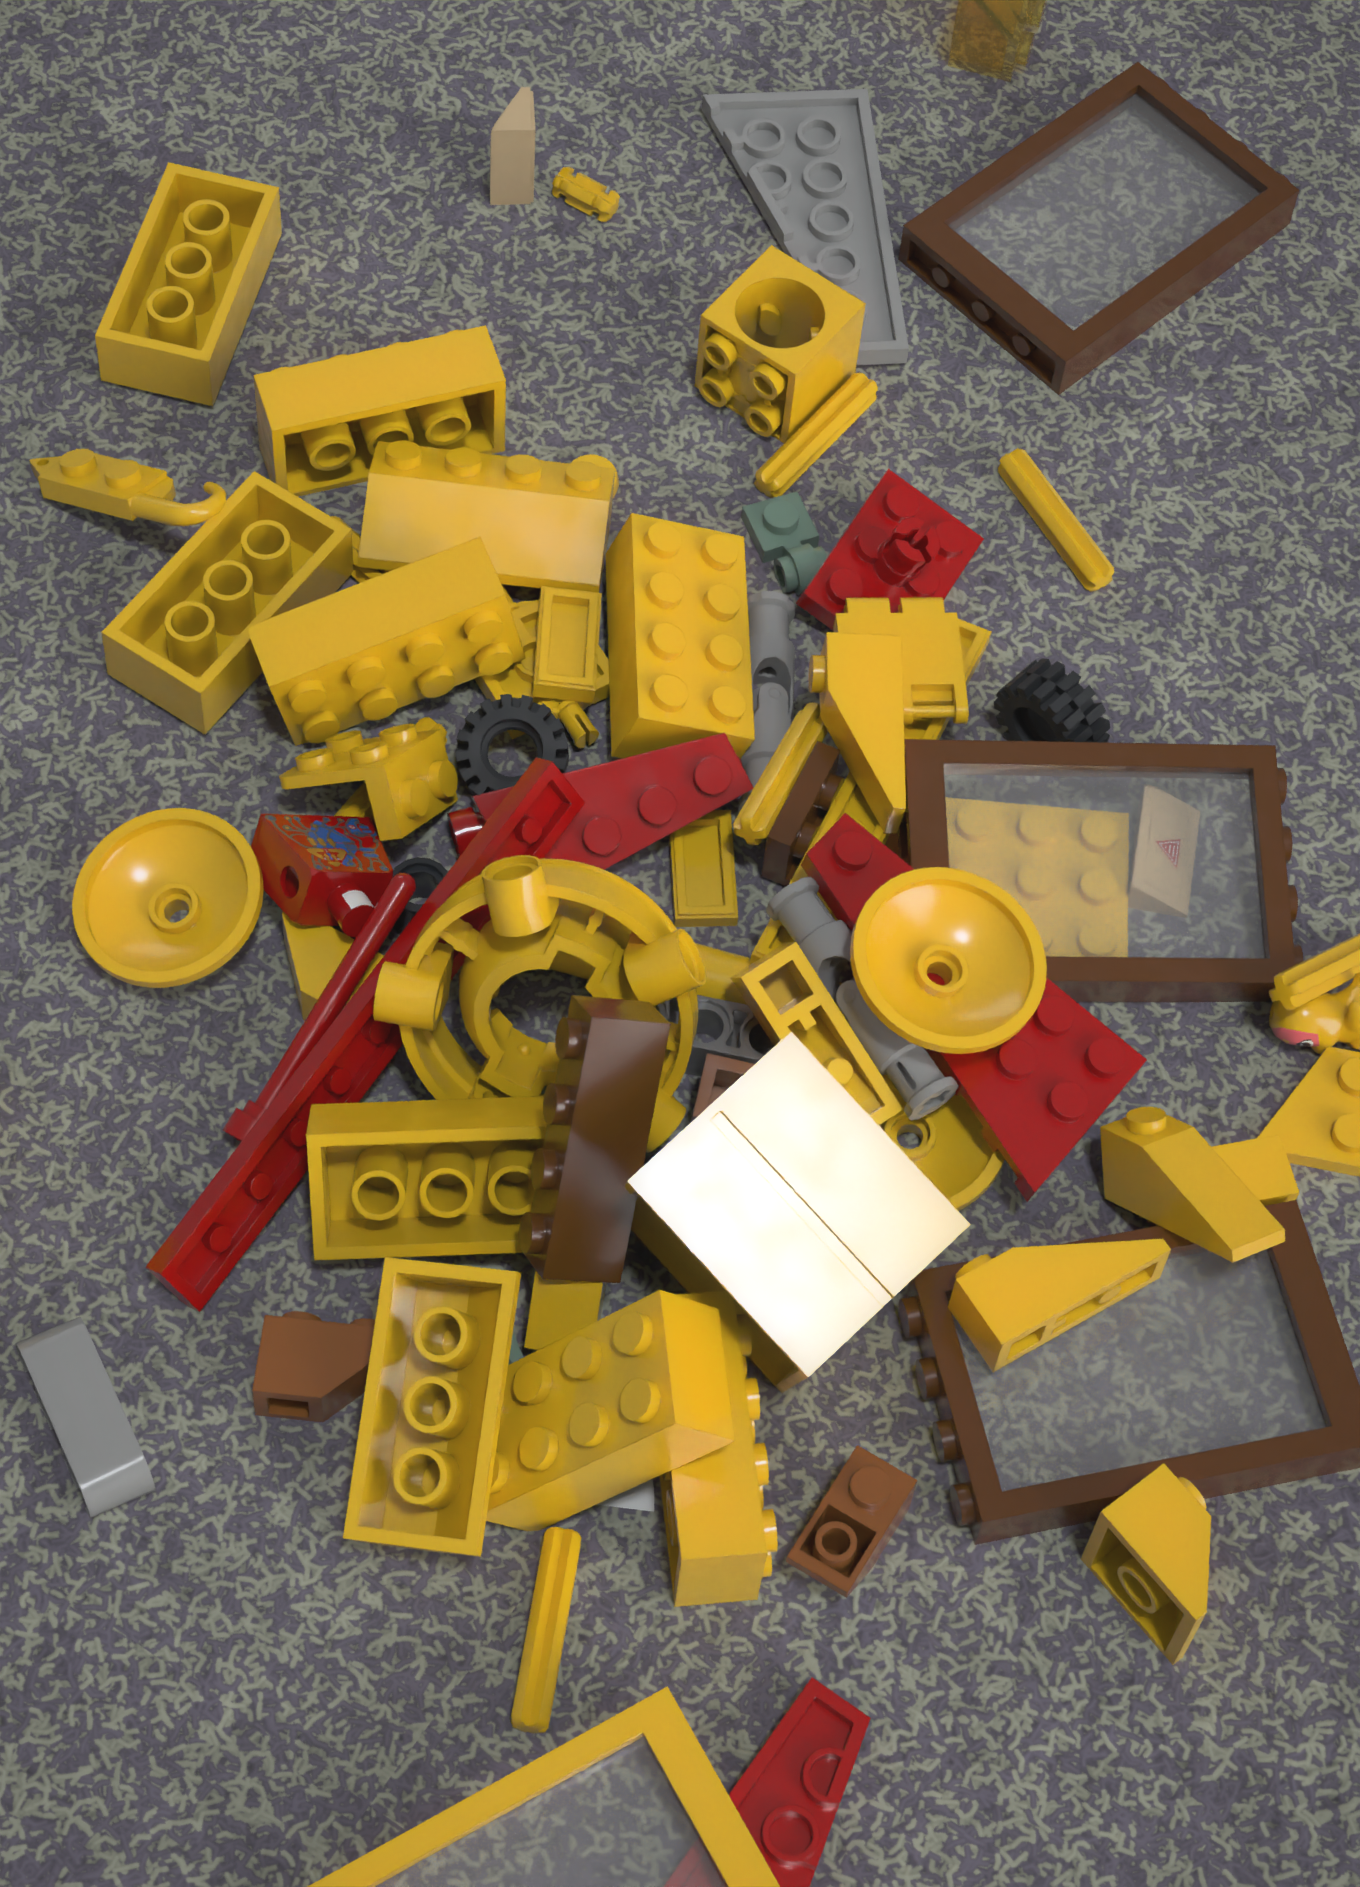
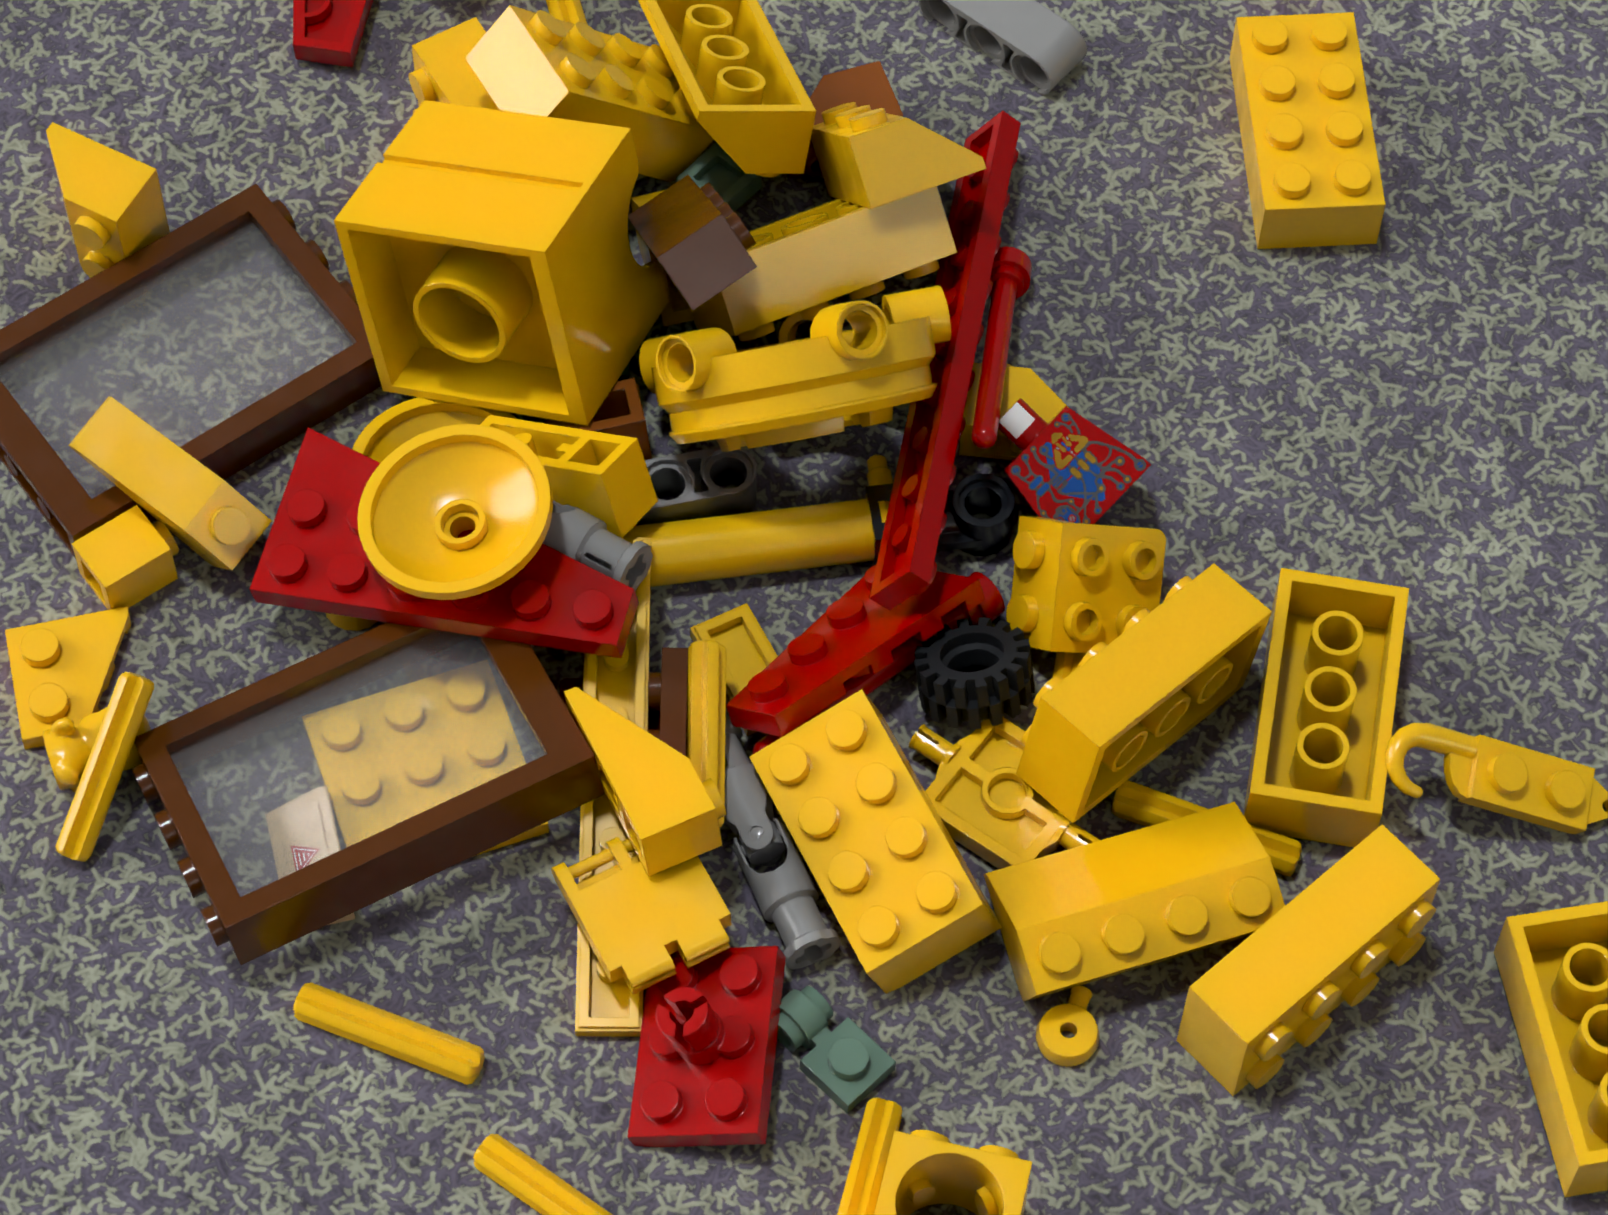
camera: 160 degrees right, 0 degrees up
(150, 872) = (1194, 404): yellow dish -> none
(318, 1212) = (884, 156): none -> yellow slope
(567, 644) = (983, 799): yellow tile -> none
(853, 1522) = (360, 135): dark orange slope -> none
(1043, 1291) = (264, 345): yellow slope -> none
(1050, 706) = (469, 920): black tyre -> none
(1142, 690) = (389, 1033): none -> yellow axle

